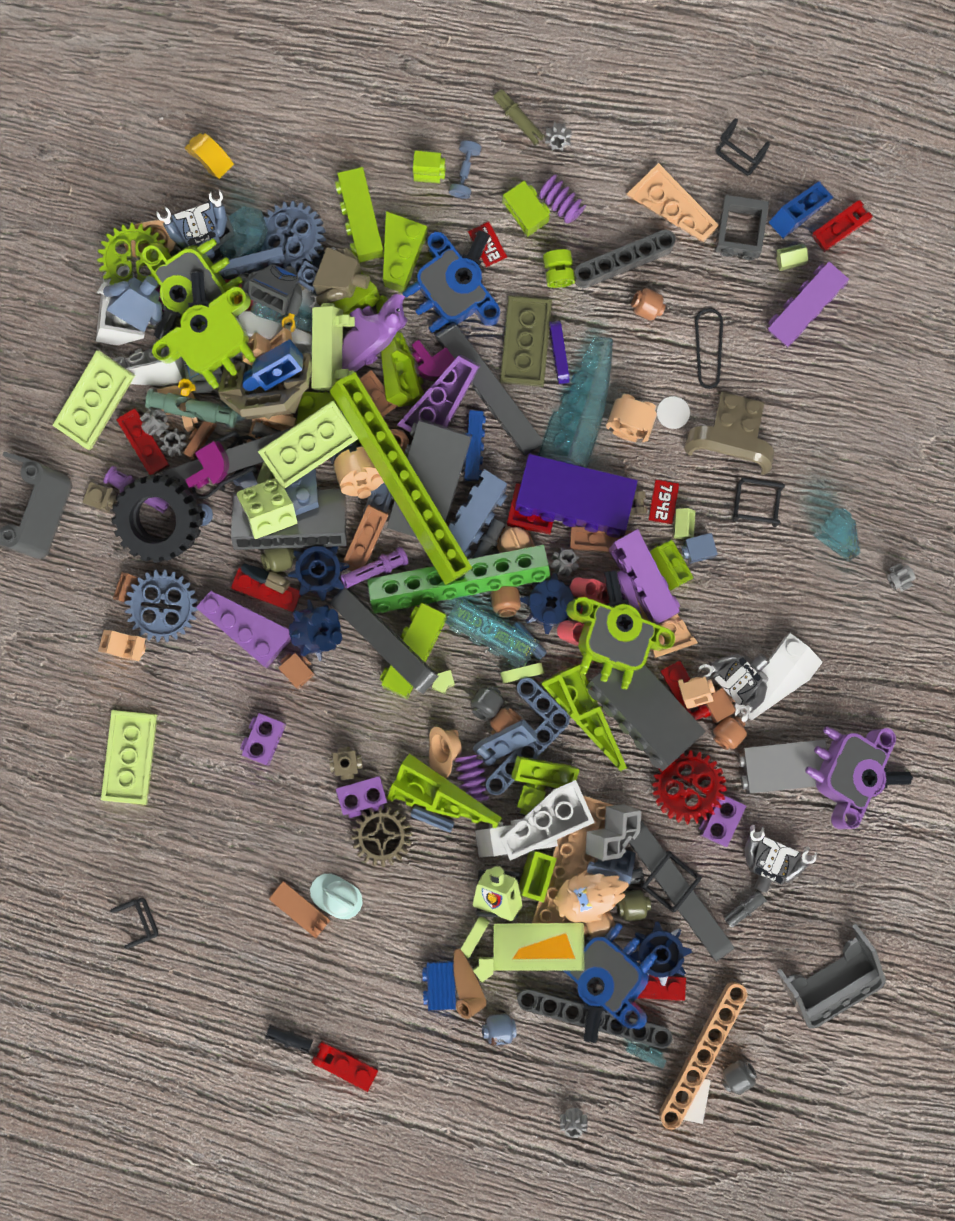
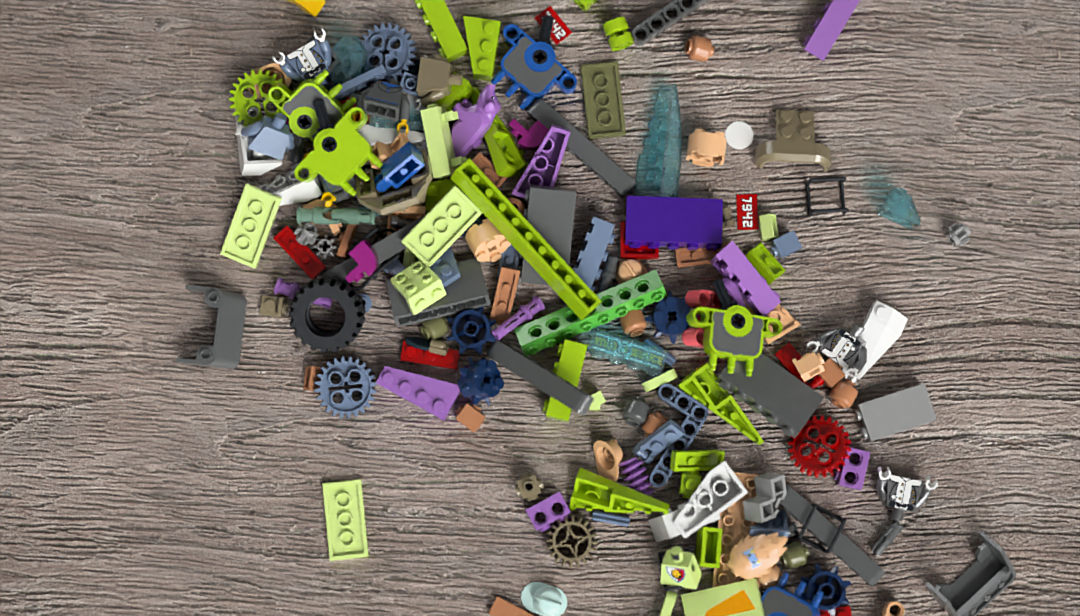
camera: 10 degrees left, 0 degrees up
(122, 645) = (320, 427): light nougat brick -> none
(268, 741) = (460, 481): medium lavender brick -> none
(473, 457) = (581, 208): blue piece -> none
(559, 352) = (633, 104): dark purple beam -> none
(564, 561) = (675, 279): light grey gear -> none
(698, 347) = (748, 76): black piece -> none
(855, 772) = (955, 405): medium lavender piece -> none

